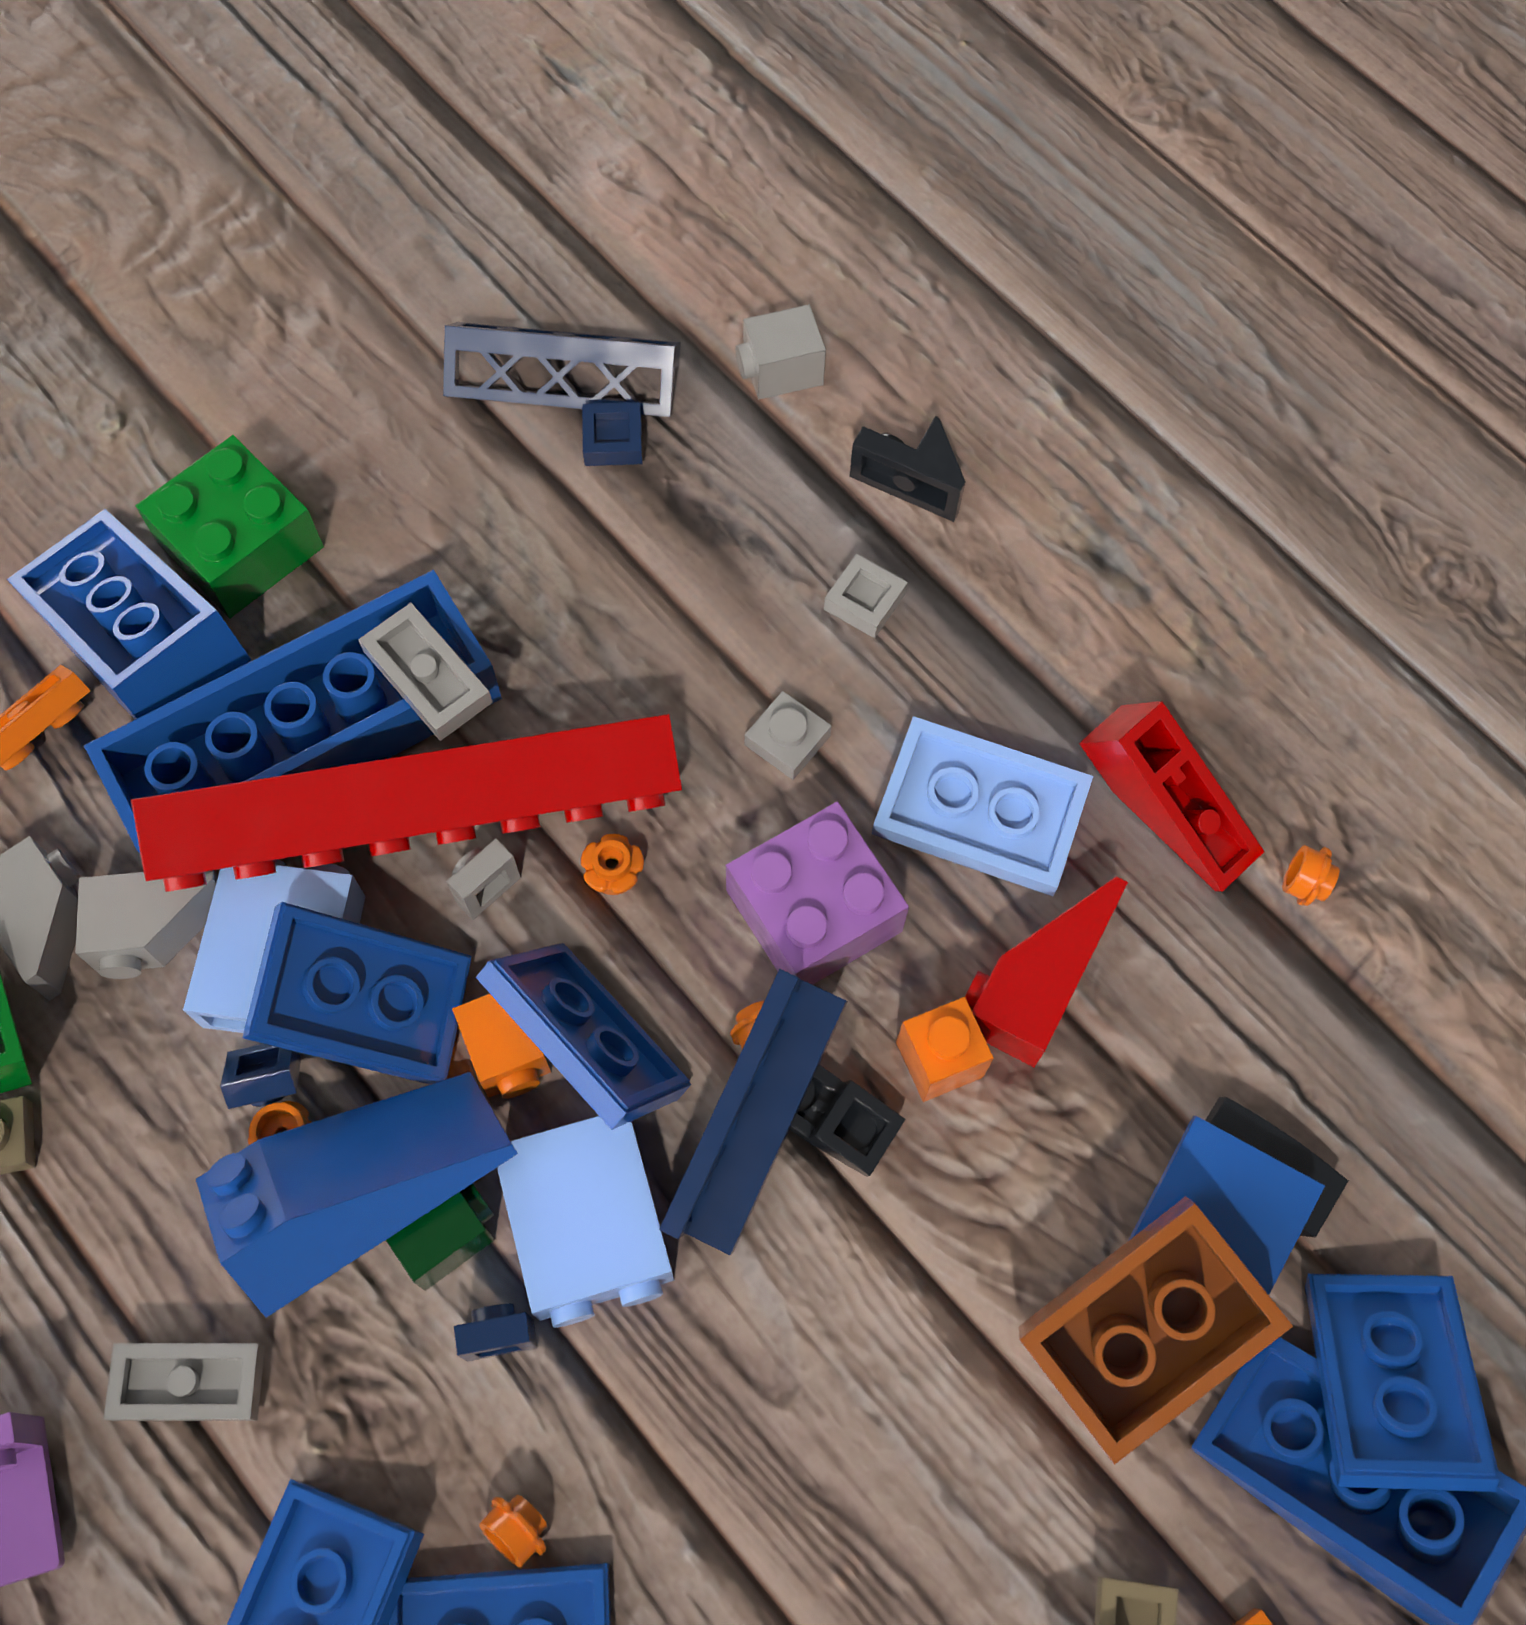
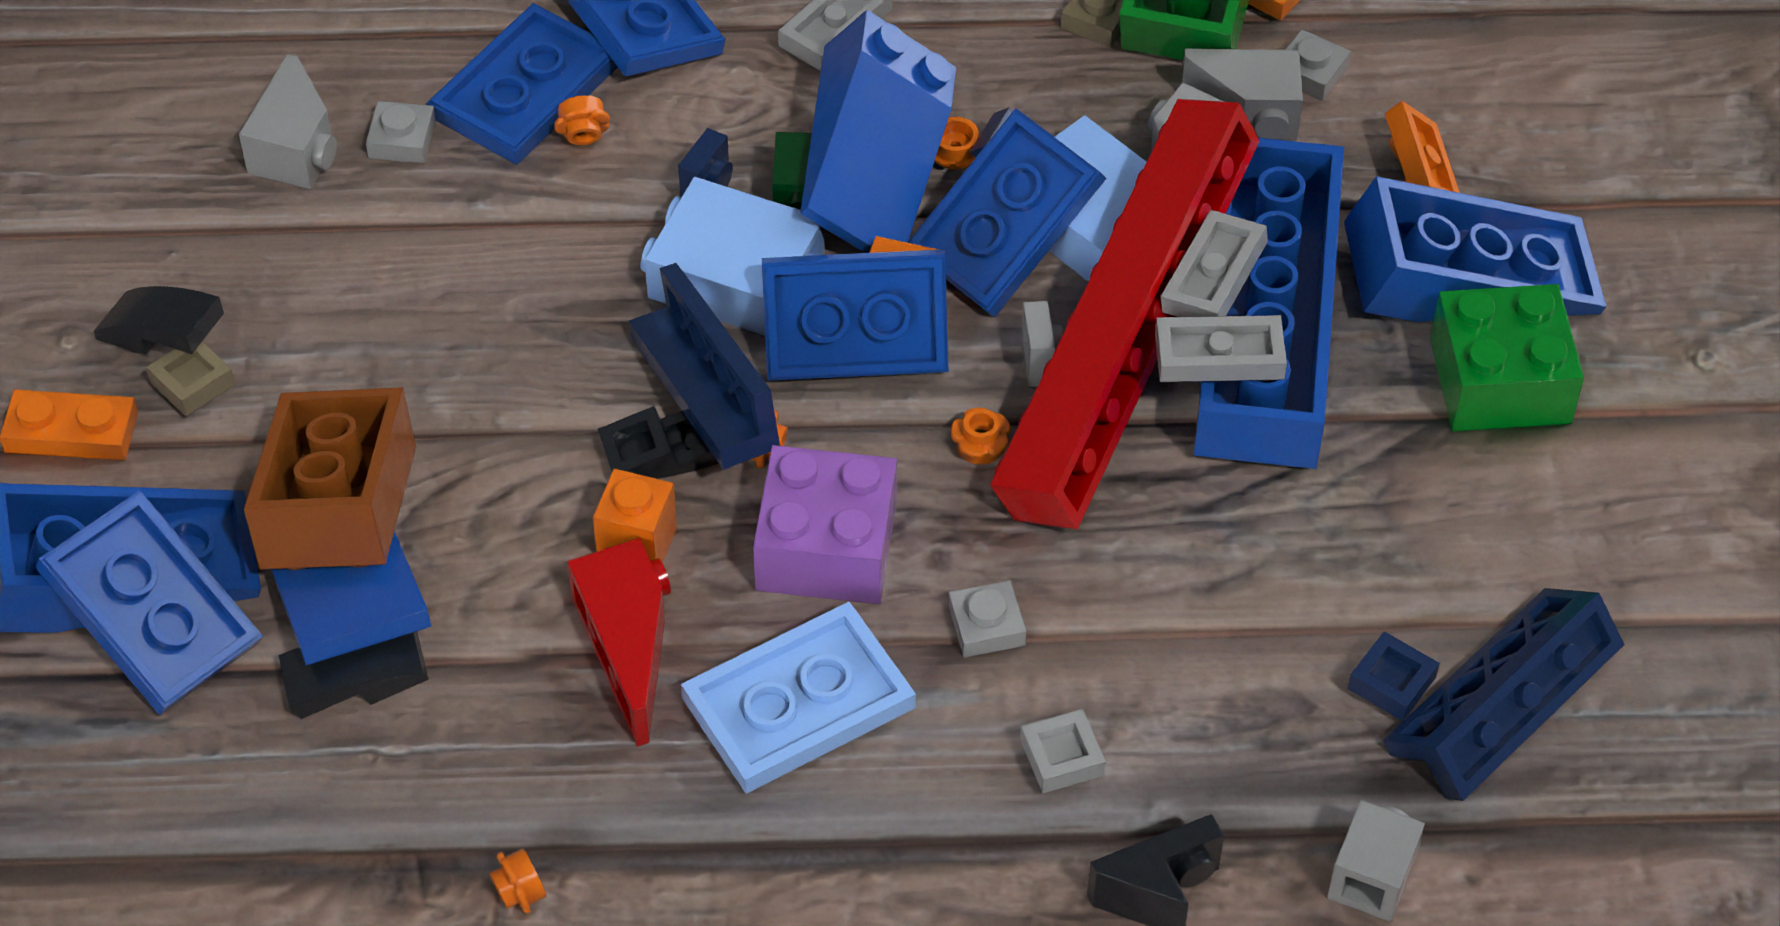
camera: 130 degrees right, 15 degrees down
(333, 731) = (1214, 267): none -> light grey plate
(1172, 791) = (682, 828): red slope -> none

